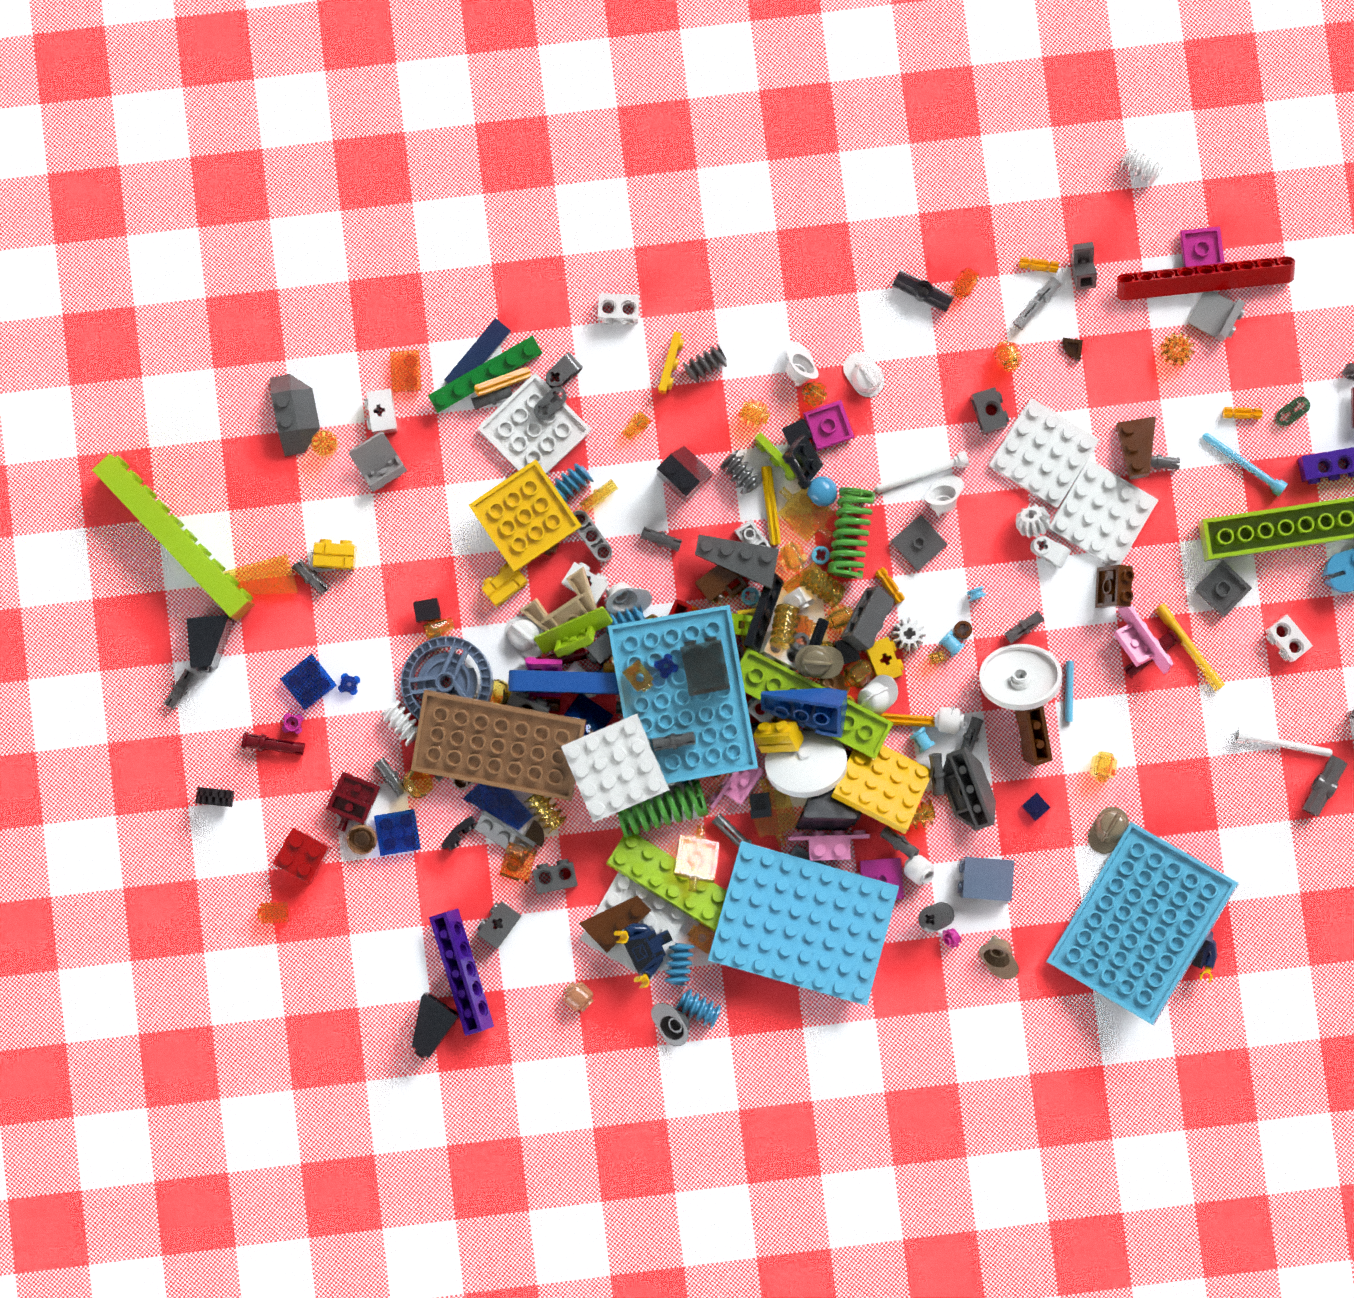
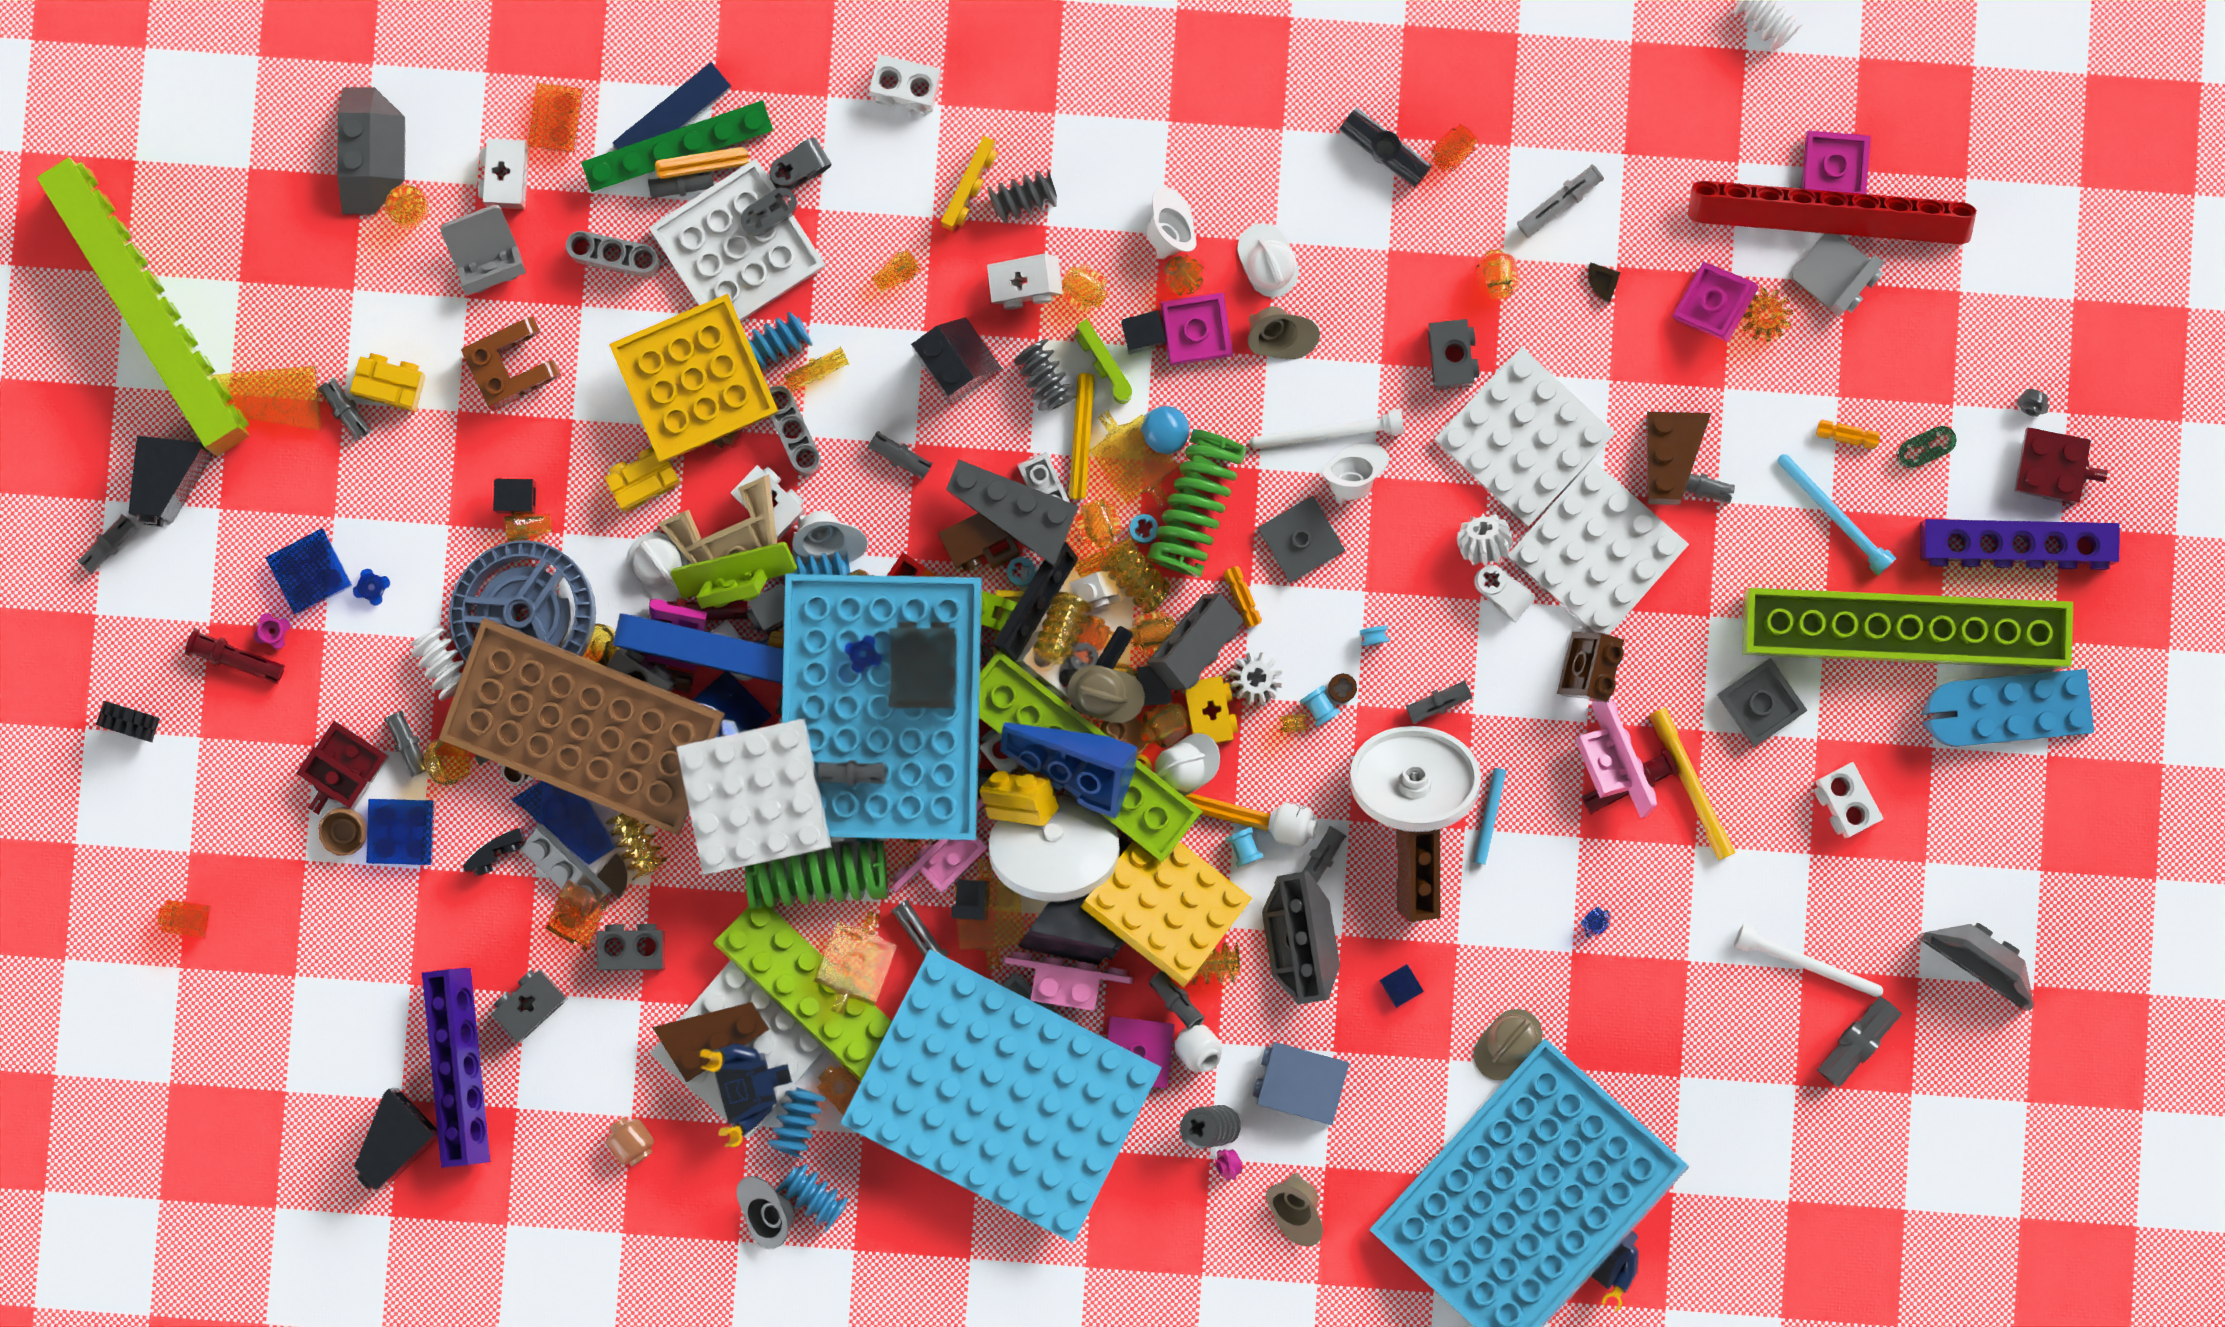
camera: 15 degrees right, 0 degrees up
(302, 855) = (245, 838): red brick -> none
(398, 537) = (490, 373): none -> dark orange brick
(449, 444) = (600, 244): none -> light grey beam
(635, 669) = (806, 656): clear orange brick -> none
(706, 416) = (1039, 271): none -> white brick
(807, 459) = (1150, 373): black plate -> none
(882, 418) = (1282, 334): none -> dark tan piece
(937, 774) = (1256, 905): dark grey pin -> none
(1038, 264) = (1575, 141): light orange axle -> none
(1083, 266) = (1644, 156): dark grey brick -> none
(1103, 766) = (1518, 944): clear yellow head -> none
(1145, 346) = (1715, 301): none -> dark pink plate
(1148, 744) = (1596, 922): none -> clear blue plate

